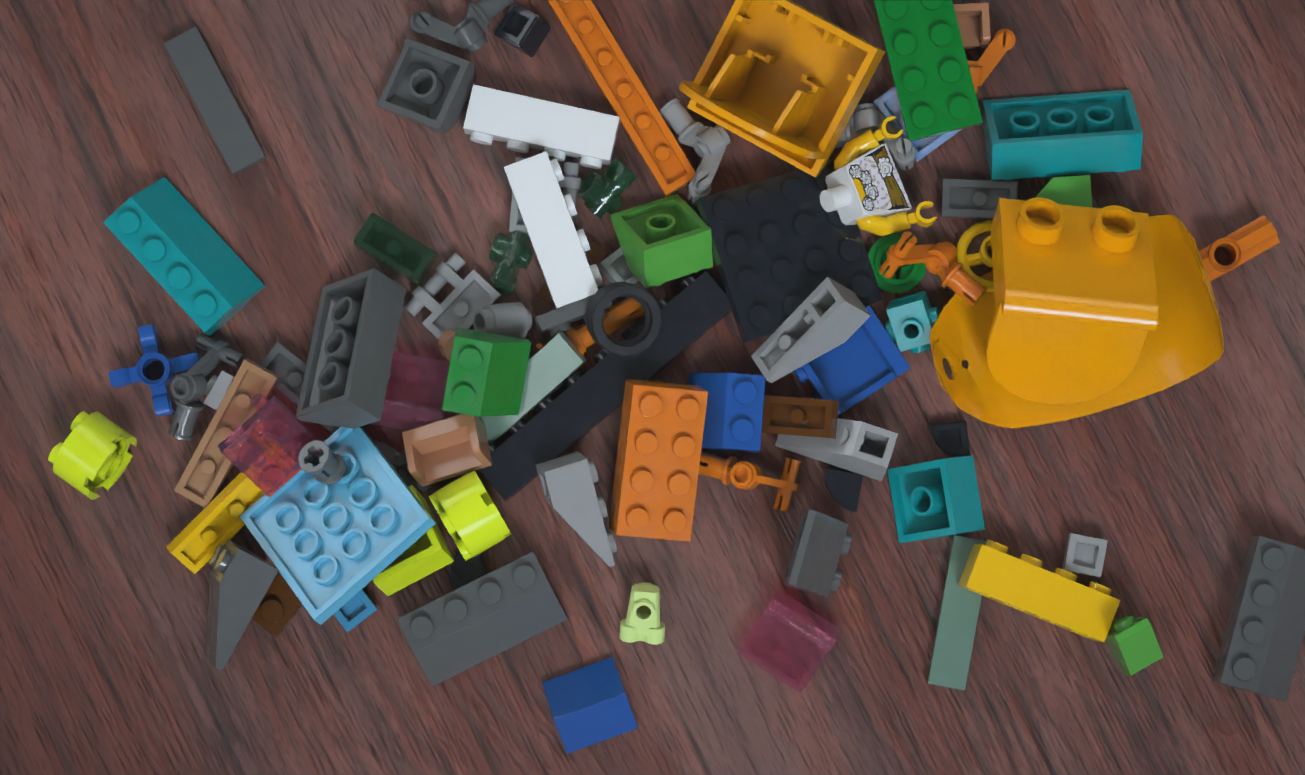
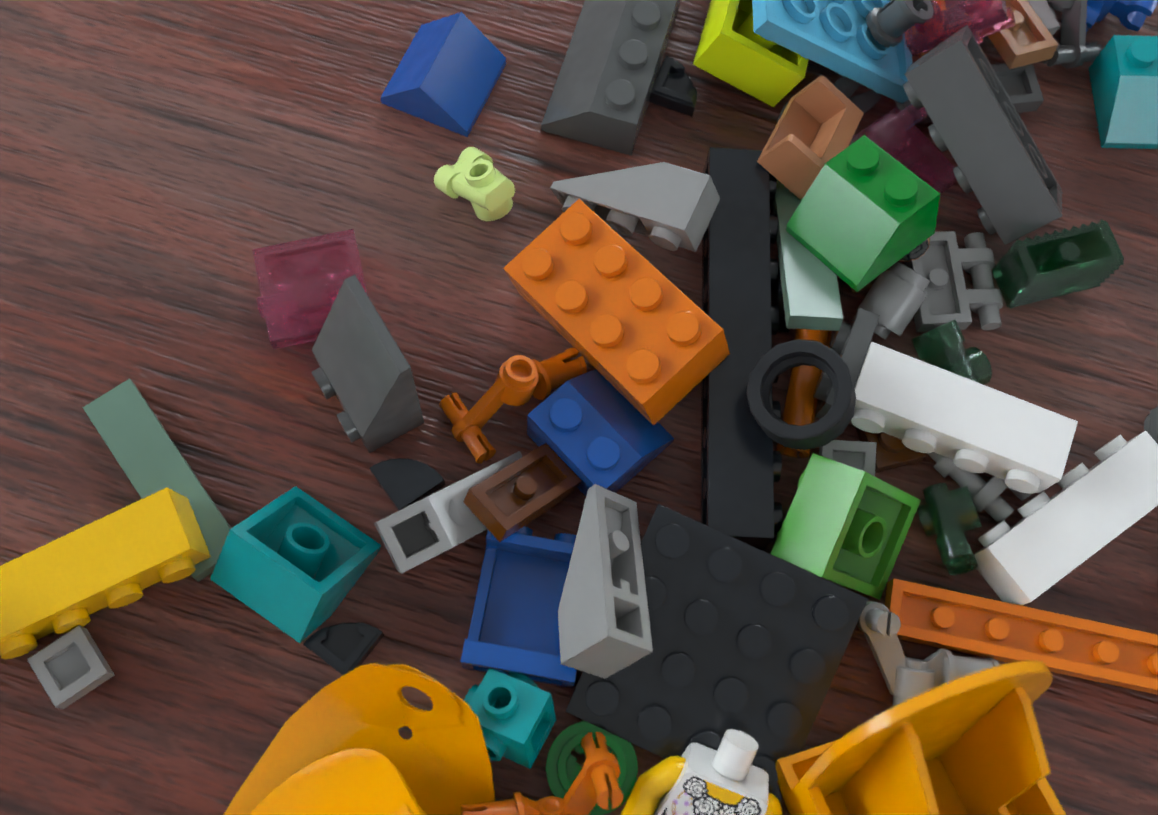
camera: 130 degrees right, 15 degrees down
(469, 515) = (724, 105): neon yellow brick -> none

